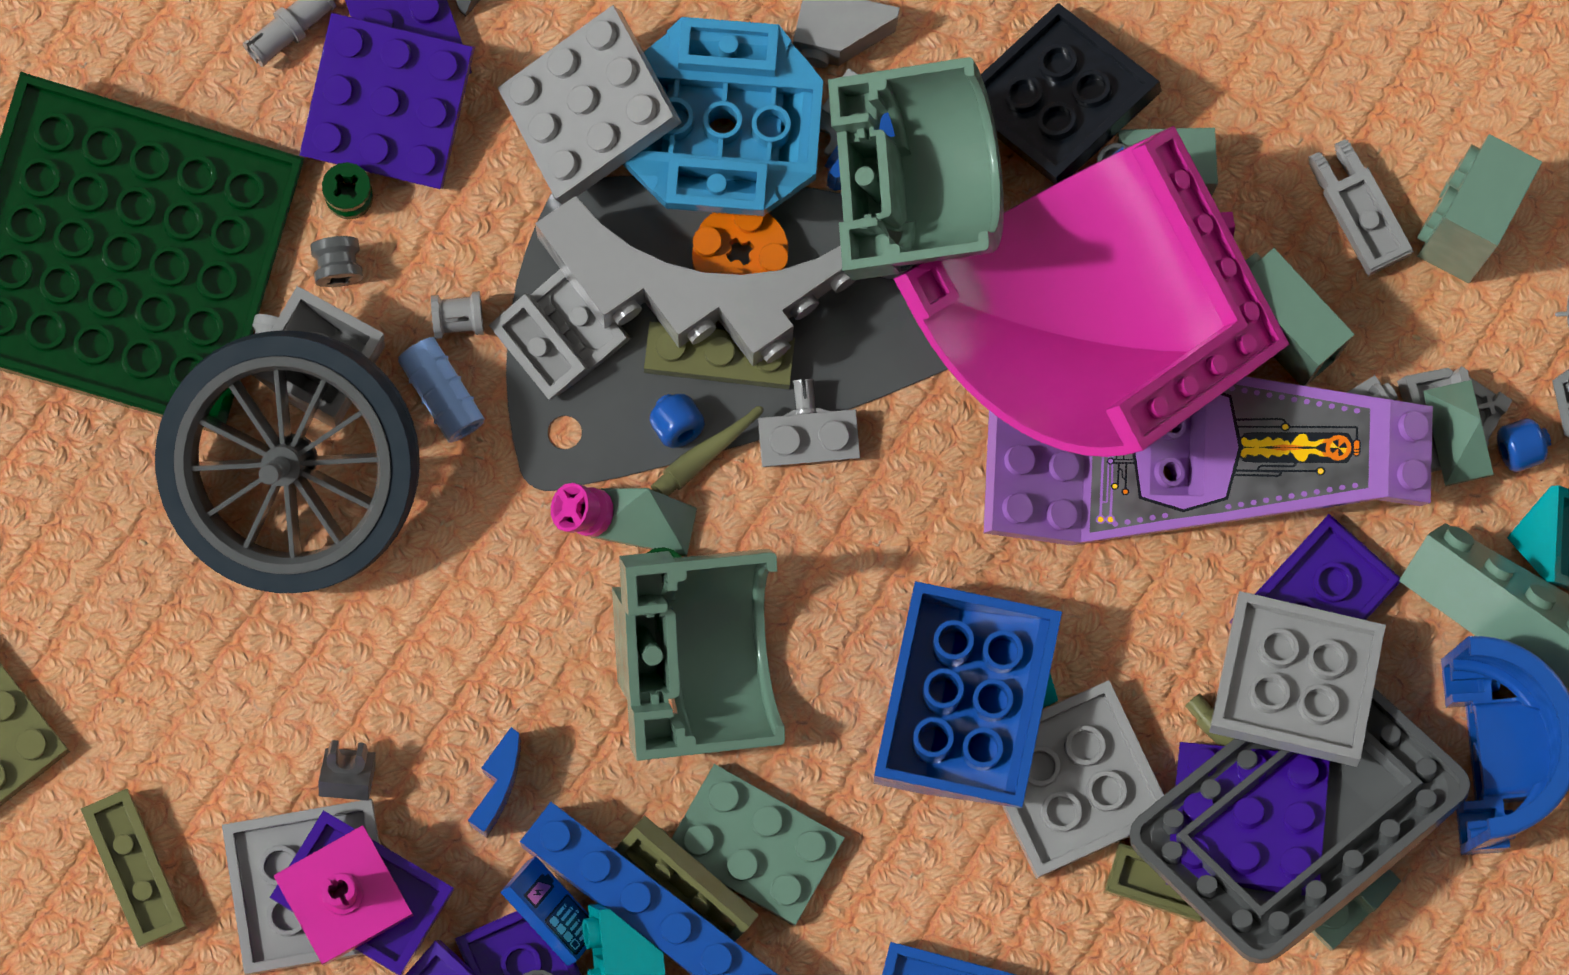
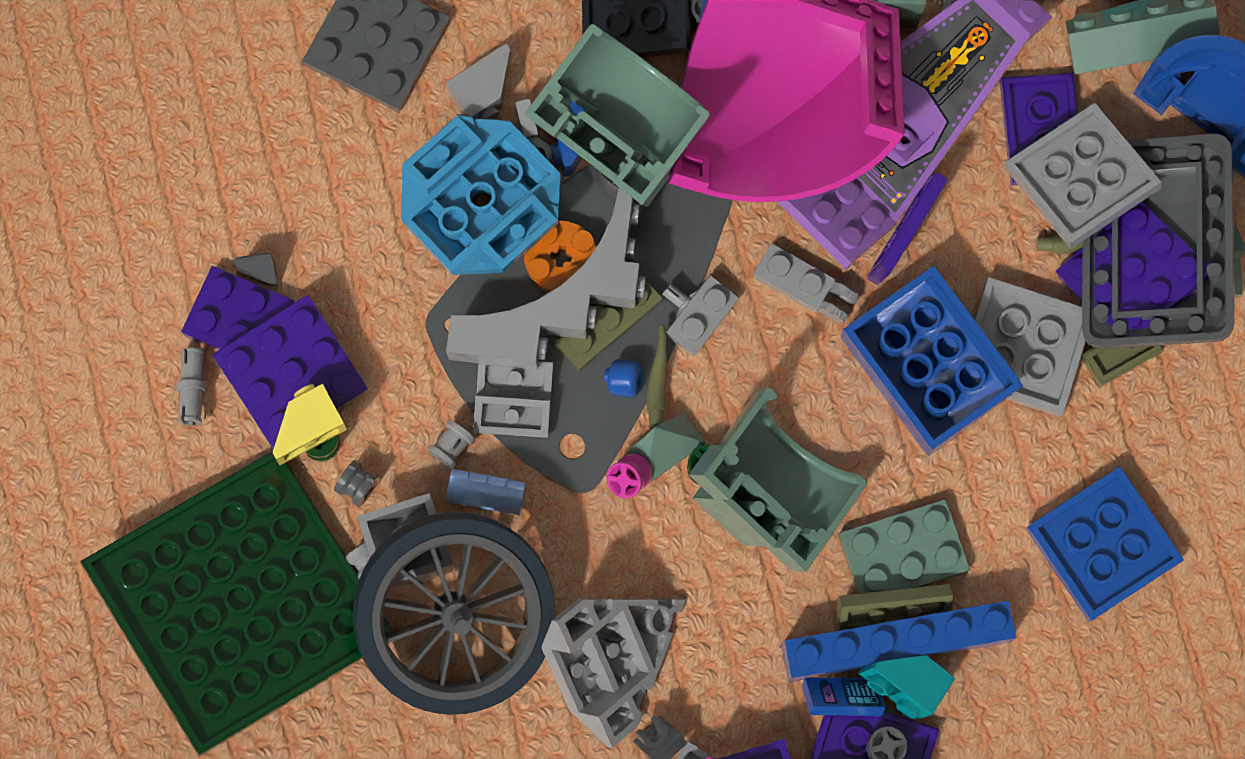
camera: 45 degrees left, 0 degrees up
(345, 159) = (307, 423): none -> light yellow slope
(383, 650) = (608, 657): none -> light grey wedge
(502, 769) = (738, 653): blue slope -> none
(589, 105) = (401, 261): light grey plate -> none
(934, 505) = (802, 283): none -> light grey hinge
(1079, 554) = (906, 228): none -> dark purple tile

